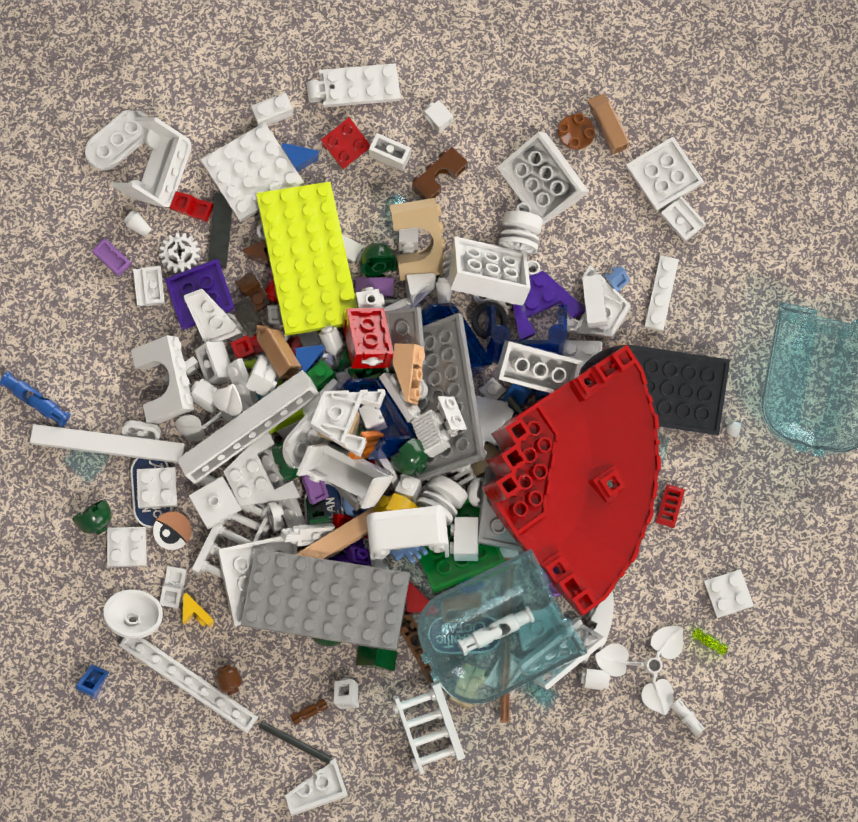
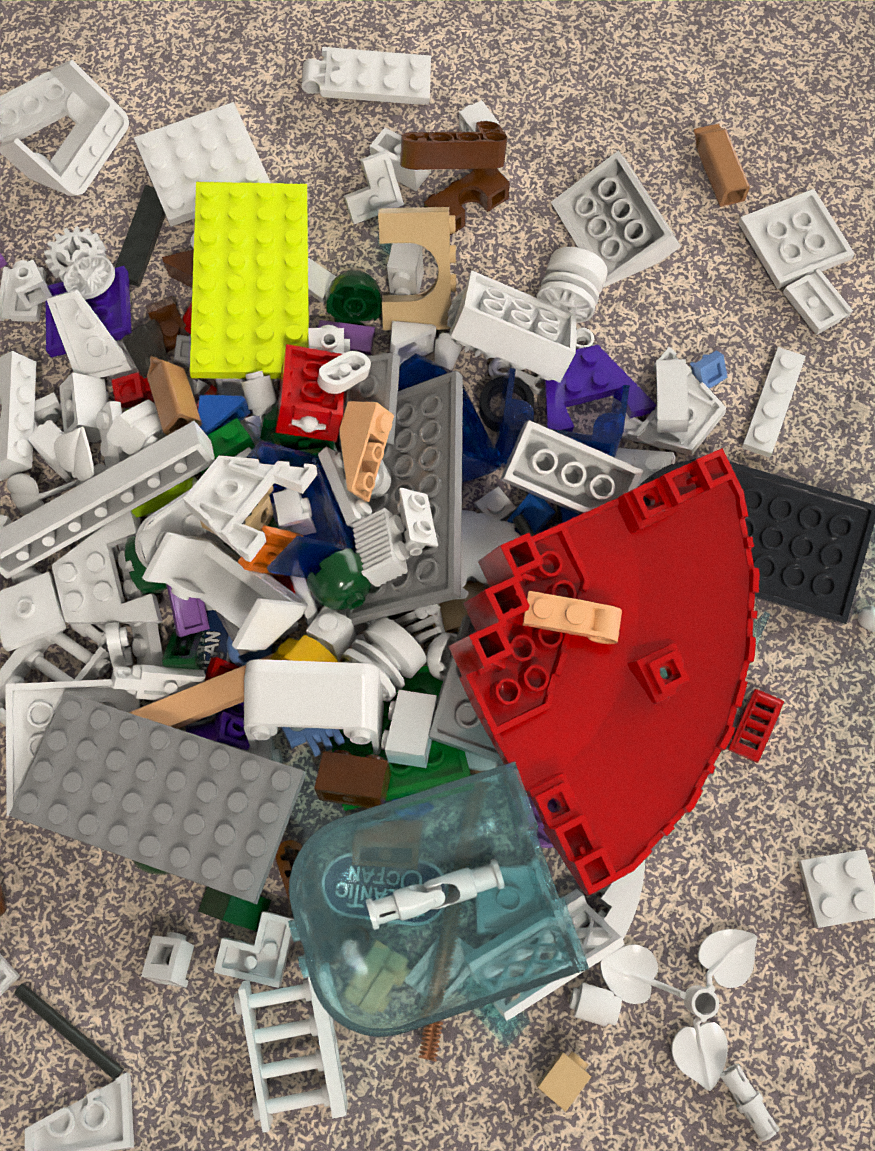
camera: 15 degrees right, 5 degrees down
(137, 223) = (26, 209): white cone -> none
(158, 286) = (26, 278): none -> white brick
(191, 207) = (107, 199): red slope -> none
(197, 270) = (90, 276): none -> white wheel
(272, 110) = (249, 89): white brick -> none
(300, 156) = (275, 152): blue slope -> none
(309, 711) = (102, 980): reddish brown axle -> none
(345, 143) = (340, 143): red hinge -> none
(380, 178) = (380, 192): none -> white plate
(385, 326) = (344, 372): none -> white plate
(399, 686) = (260, 961): none -> white plate
(415, 600) = (311, 815): red slope -> none
(430, 147) = (455, 150): none -> reddish brown beam
(437, 573) = (352, 779): none -> reddish brown brick
(552, 459) = (573, 616): none -> light nougat plate
(576, 131) = (672, 168): dark orange dish -> none
(583, 721) = (564, 1079): none -> tan brick
(710, 641) = (801, 968): clear neon green axle -> none

